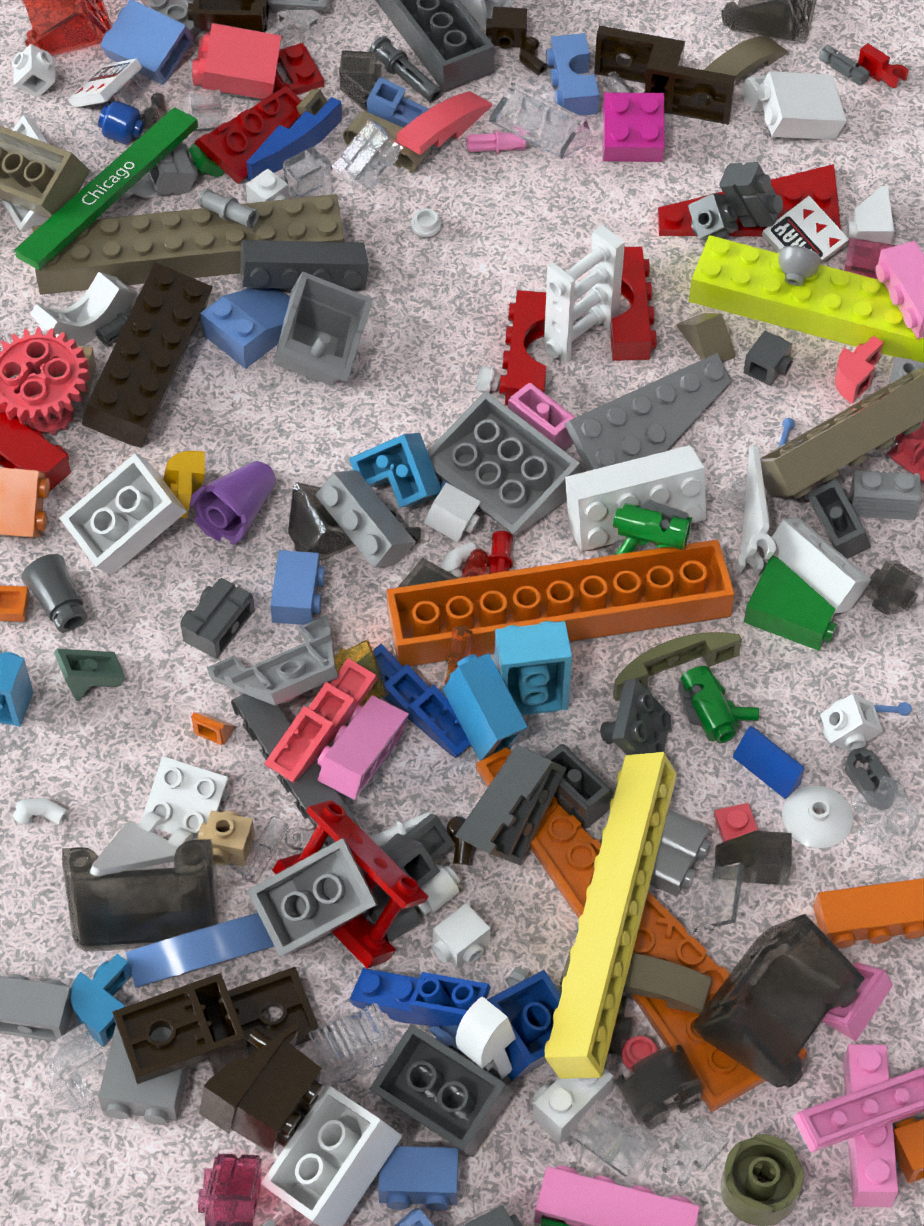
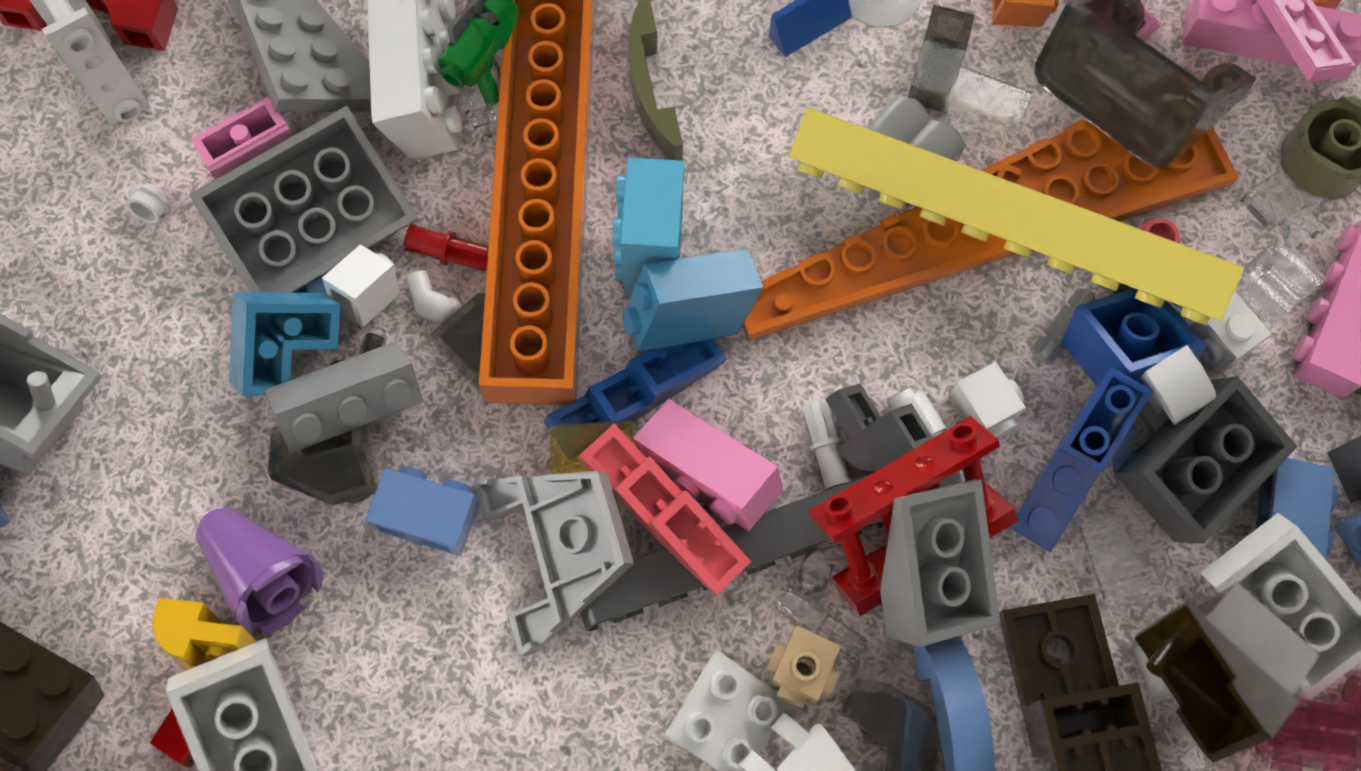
camera: 80 degrees left, 15 degrees up
(211, 728) = (615, 661): orange slope -> none
(217, 617) = (444, 627): dark grey brick -> none
(459, 648) = (599, 320): clear orange axle -> none
(463, 850) = (849, 372): dark brown arm -> none
(476, 563) = (454, 282): clear red arm -> none
(513, 805) = (842, 296): dark grey wedge -> none
(528, 326) = (67, 125): red arch -> none
(580, 788) = (810, 226): dark grey brick -> none
(640, 722) = (745, 137): dark grey plate -> none
(660, 1086) = (1224, 216): clear smoke brick -> none
(665, 980) = (1090, 188): dark tan slope -> none
(708, 707) = (722, 59): green piece -> none
(734, 821) = (879, 72): coral plate -> none

